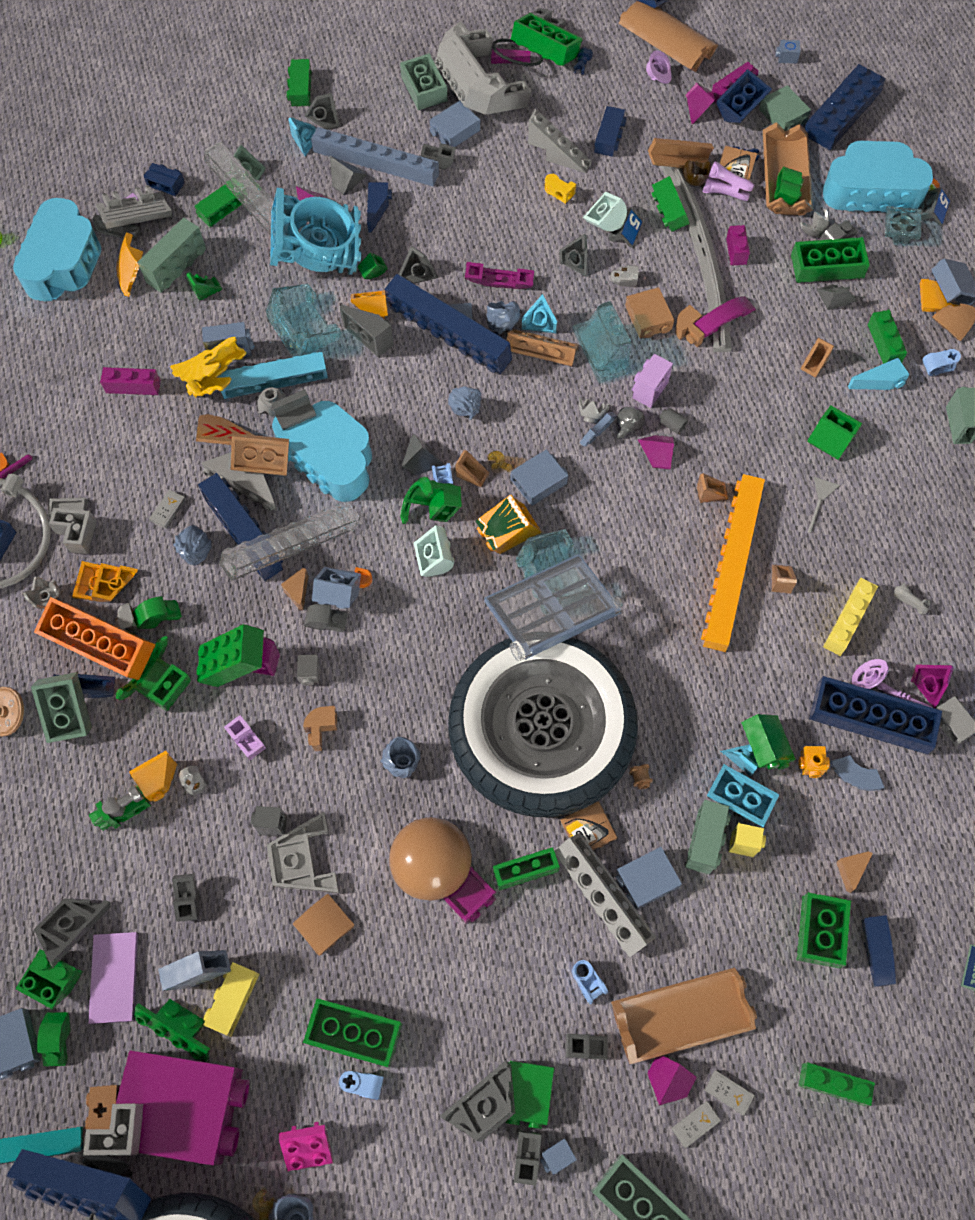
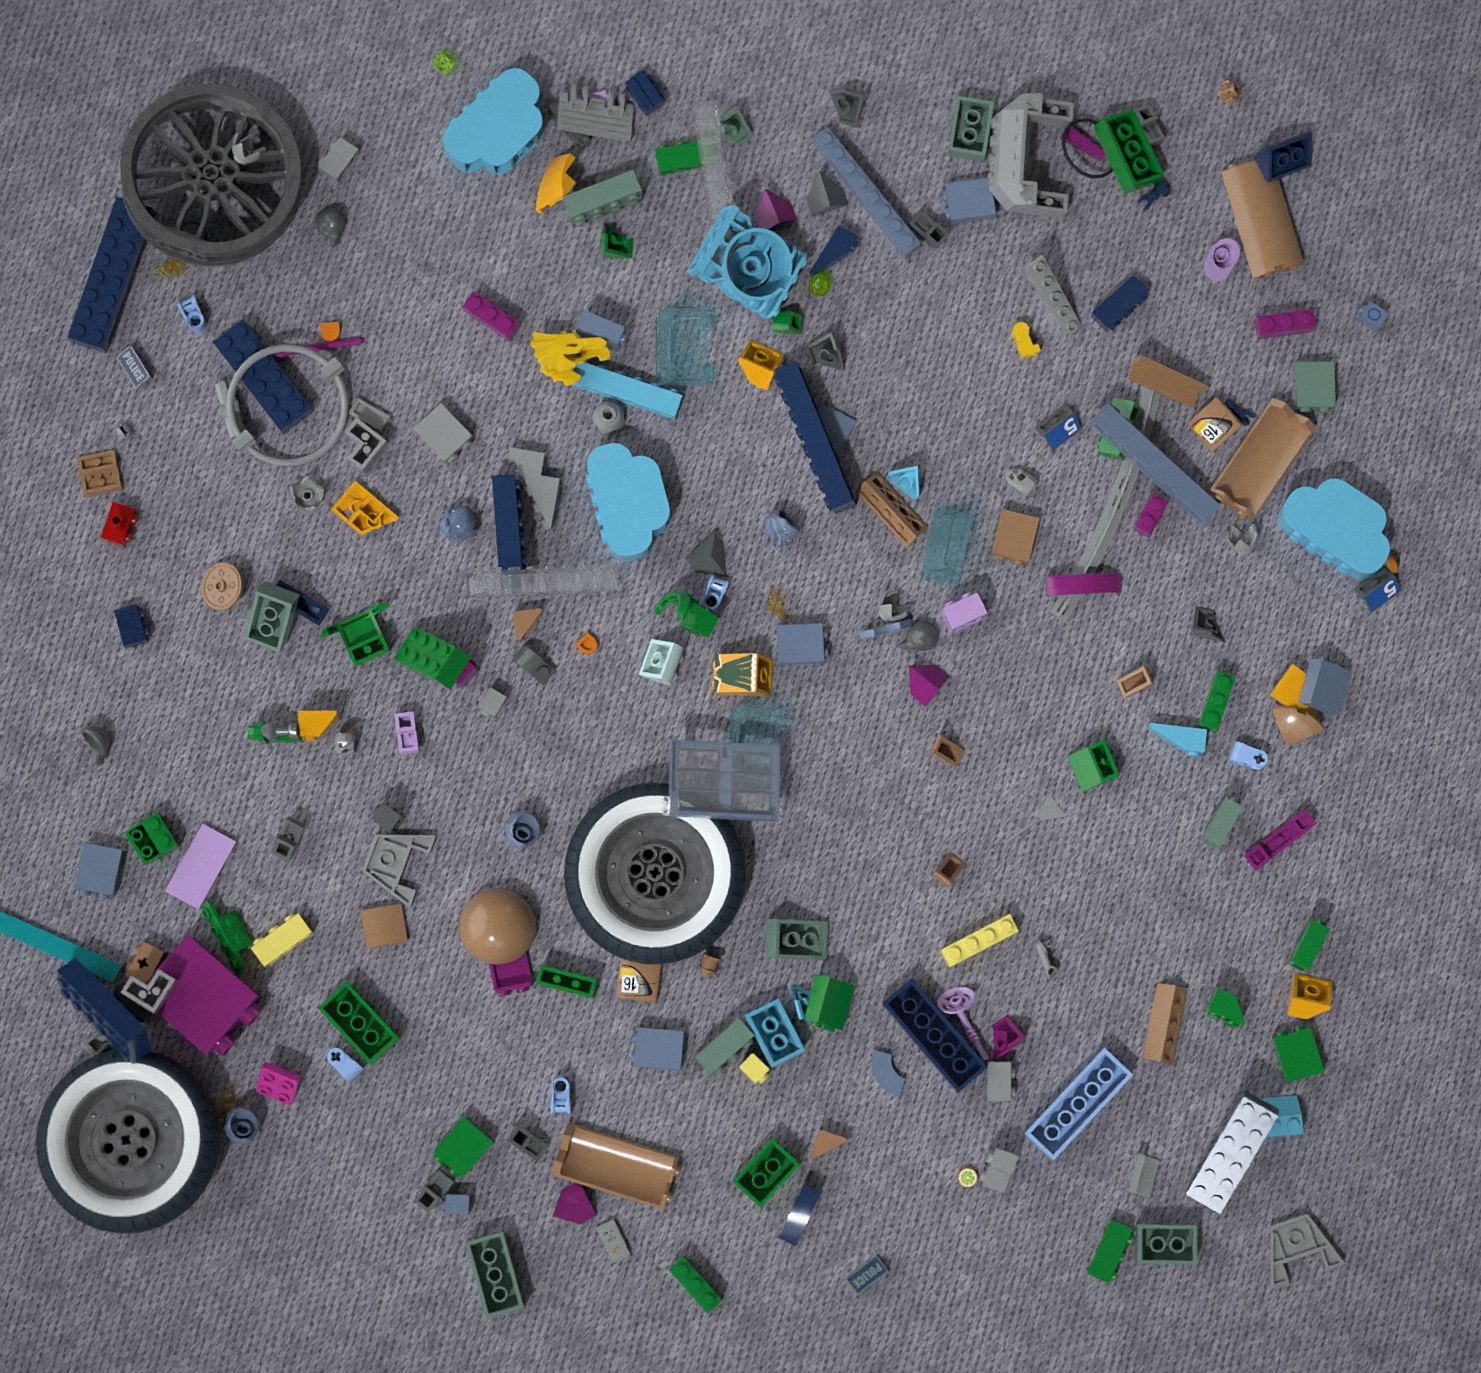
camera: 30 degrees right, 15 degrees up
(52, 1038) = (133, 887): green brick -> none
(67, 925) = (186, 804): dark grey wing -> none
(94, 638) = (329, 568): orange brick -> none
(126, 619) = (364, 561): light grey rock -> none
(139, 485) = (443, 434): none -> light grey brick
(155, 610) = (393, 571): green brick -> none
(167, 509) = (456, 471): light grey tile -> none
(194, 970) = (266, 902): sand blue brick -> none
(248, 451) = (558, 465): medium nougat piece -> none
(293, 409) = (615, 454): dark grey panel -> none
(299, 82) = (846, 49): green brick -> none
(302, 134) = (813, 120): medium azure slope -> none
(317, 721) = (474, 754): medium nougat brick -> none
(336, 587) = (557, 644): sand blue brick -> none
(368, 328) = (741, 401): dark grey slope -> none
(380, 230) = (820, 284): none -> clear neon green hat
(470, 469) = (745, 600): medium nougat slope -> none
(484, 1105) = (425, 1136): dark grey wing -> none
(499, 278) = (900, 409): magenta slope -> none
(502, 316) = (873, 457): sand blue hair -> none
(575, 255) = (987, 429): dark grey slope -> none
(607, 213) = (1043, 406): light aqua brick -> none
(615, 899) = (615, 1039): light grey brick -> none
(673, 420) = (959, 662): dark grey brick -> none
(686, 328) = (1039, 569): medium nougat brick -> none
(695, 1124) = (573, 1246): light grey tile -> none
(696, 172) = (1167, 410): dark brown hair -> none
(698, 101) = (1231, 327): magenta slope -> none
(699, 708) = (796, 939): none -> sand green slope
(716, 205) = (1155, 464): none -> sand blue brick
(734, 563) = (921, 825): light orange brick -> none
(736, 186) = (1188, 435): lavender piece -> none
(742, 97) = (1277, 350): dark blue slope -> none
(789, 185) = (1247, 480): green brick -> none
(813, 761) = (861, 1036): light orange brick -> none
(830, 260) = (1225, 587): green brick -> none
(840, 231) = (1255, 563): dark grey brick -> none
(844, 106) = (1376, 420): dark blue brick -> none
(902, 224) = (1325, 592): clear light blue piece -> none

